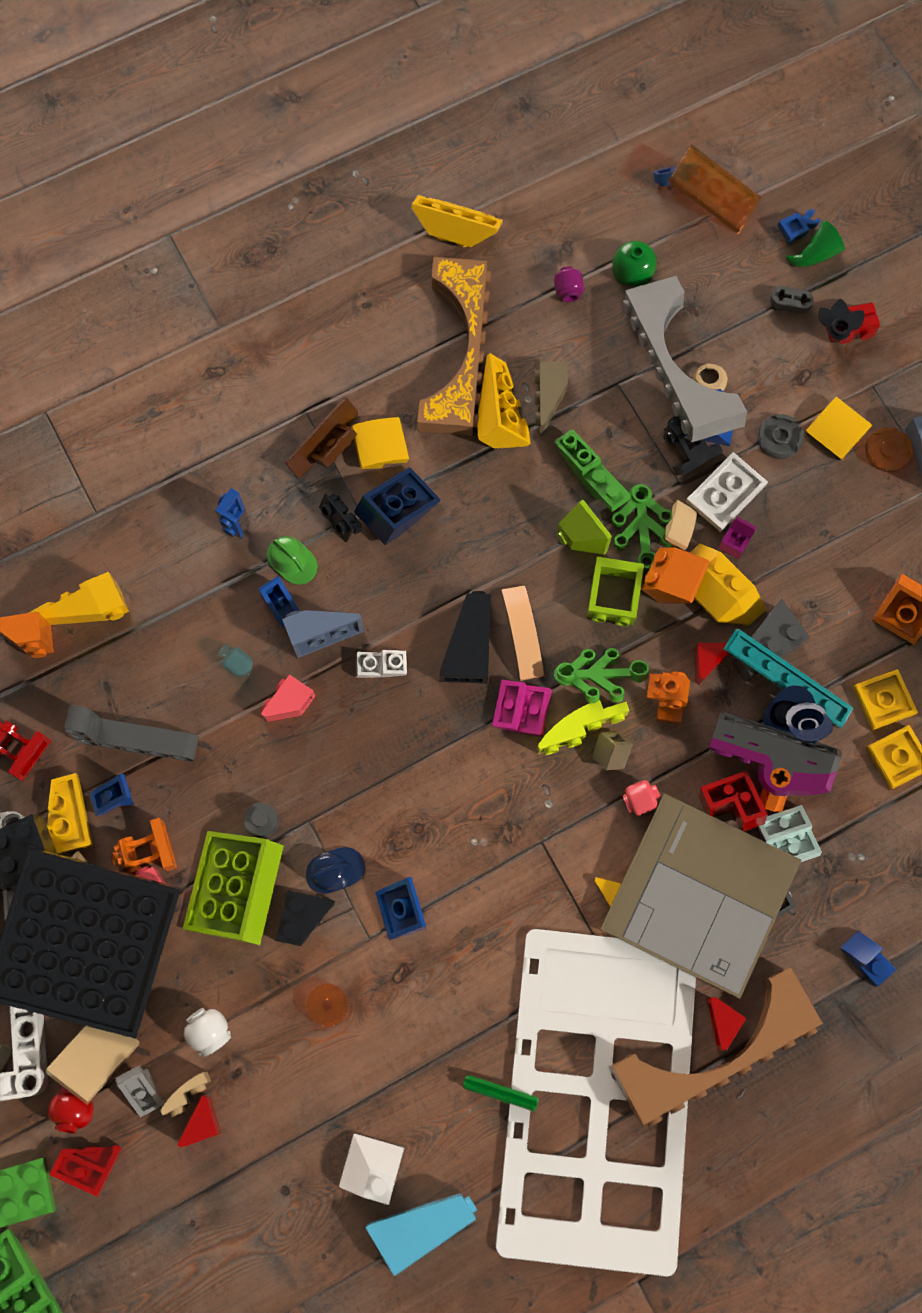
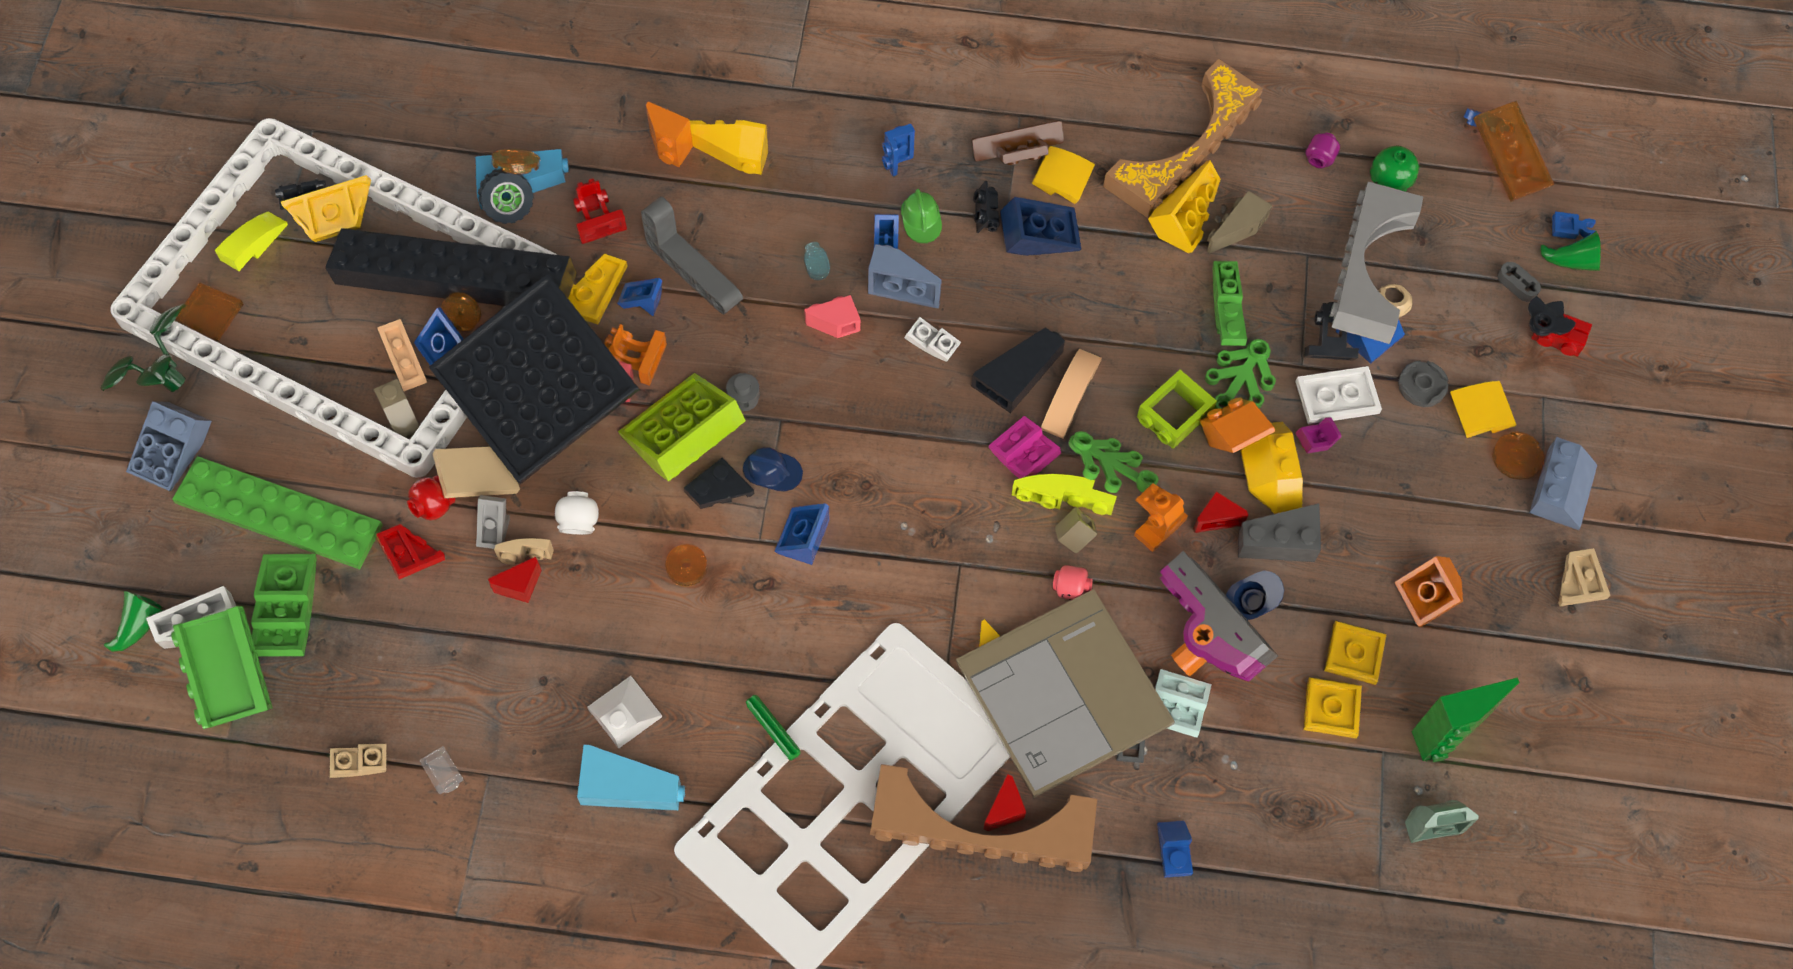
camera: 35 degrees right, 10 degrees down
(454, 222) = (1256, 42): yellow wedge -> none
(583, 531) = (1183, 343): lime slope -> none
(681, 525) = (1274, 393): tan slope -> none
(734, 794) = (1152, 630): red brick -> none
(784, 674) = (1271, 558): teal tile -> none
(809, 722) = (1261, 608): dark blue piece -> none

